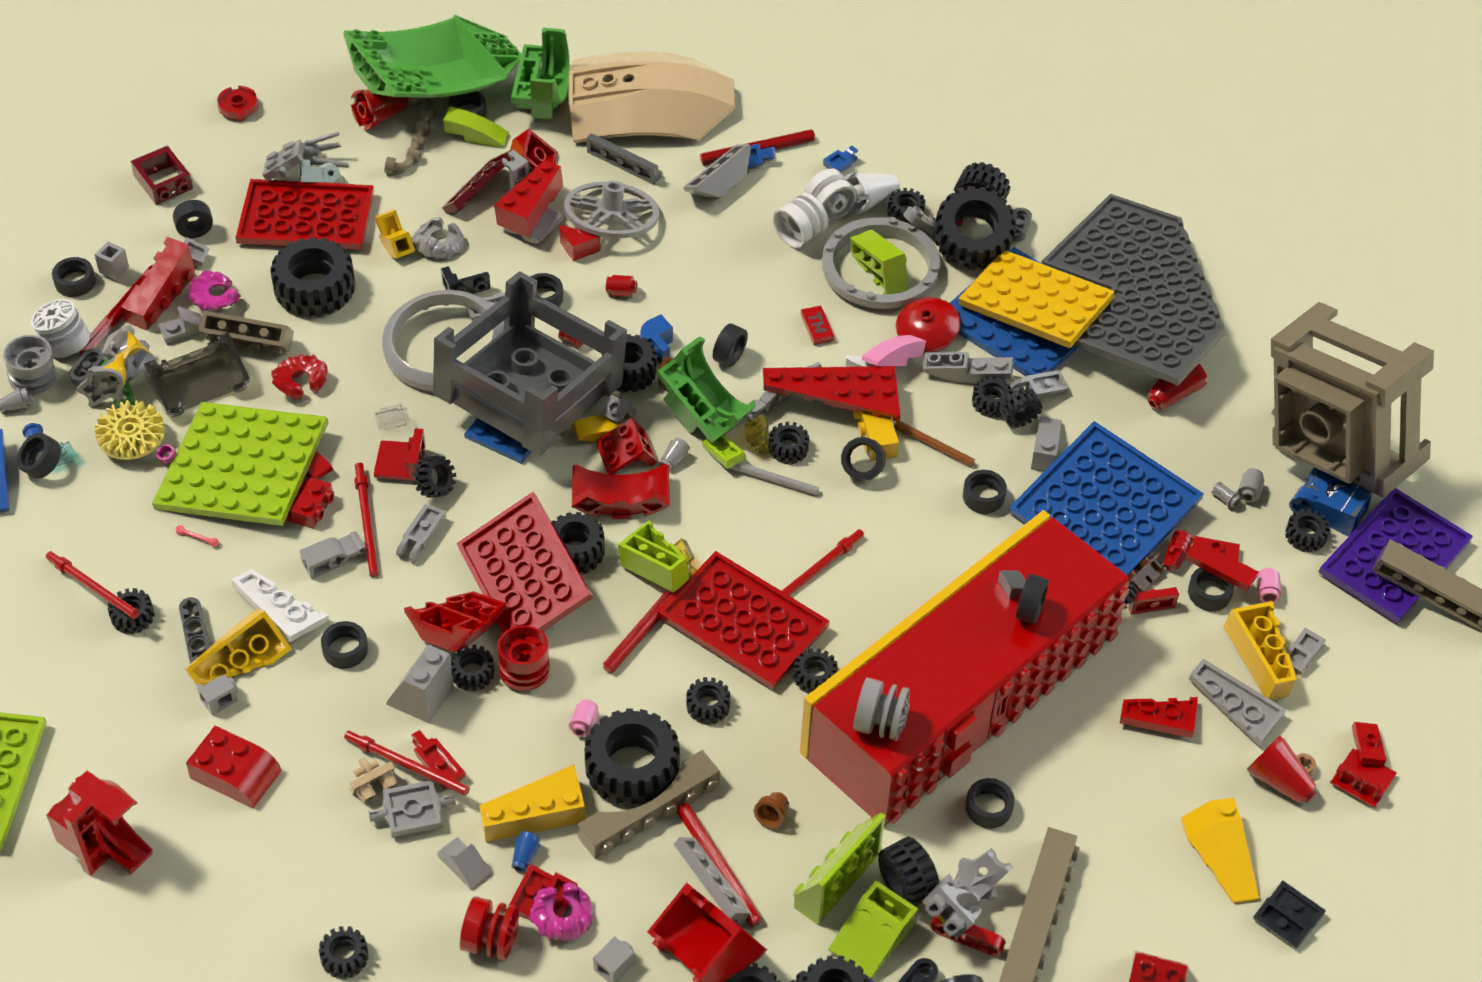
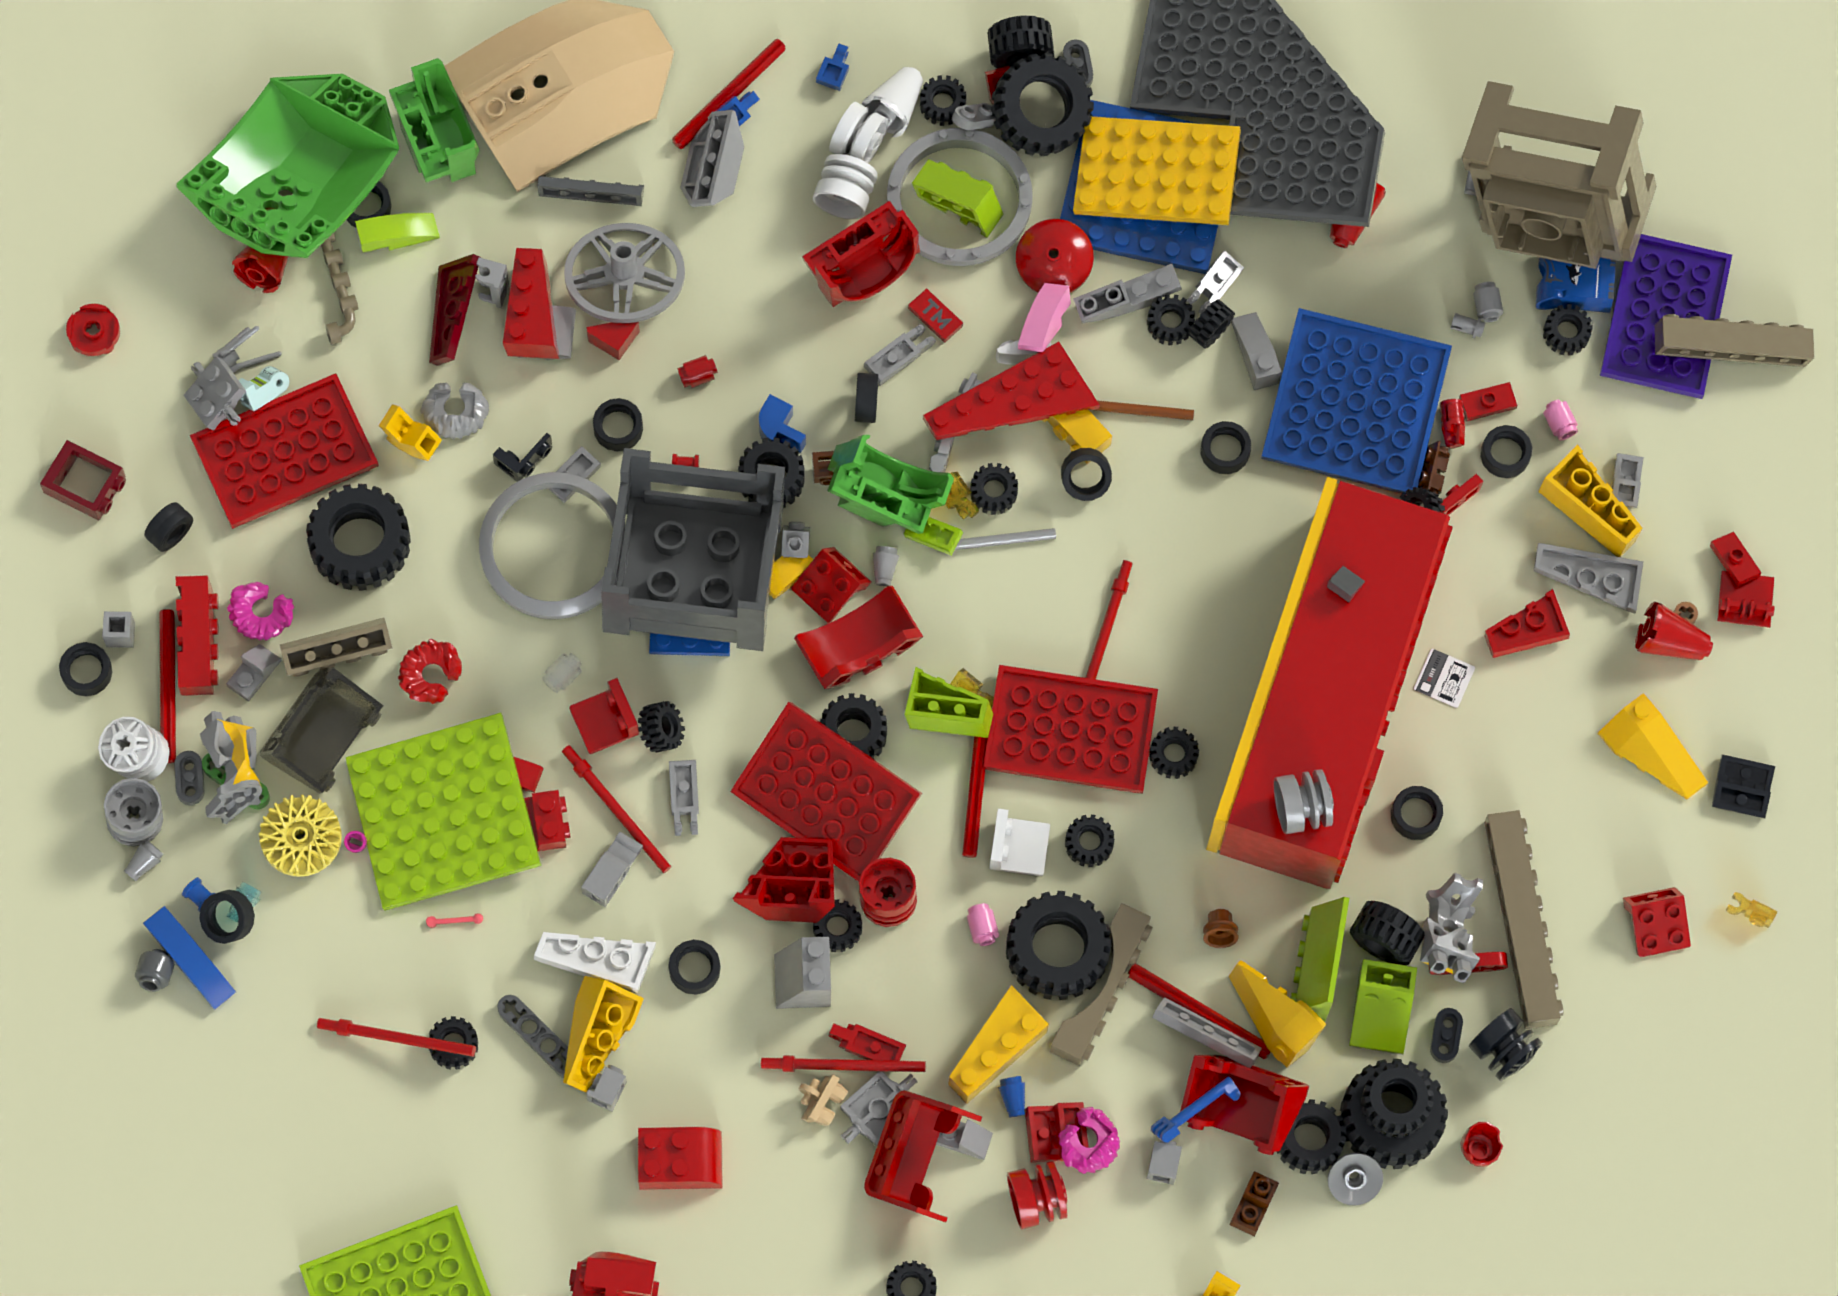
camera: 30 degrees left, 20 degrees up
(198, 251) = (195, 566): light grey bracket -> none
(413, 846) = (907, 1149): none -> red windscreen
(533, 149) = (487, 235): red slope -> none
(632, 931) = (1168, 1129): none -> blue hinge
(647, 675) = (1019, 845): none -> white bracket
(775, 334) = (898, 354): none -> light grey hinge
(780, 898) = (1284, 1025): none -> yellow wedge
(784, 261) = (862, 257): none -> red piece
(1032, 598) = (1378, 599): black tyre -> none
(1071, 722) = (1444, 678): none -> sticker
(1221, 565) = (1508, 424): red tile -> none

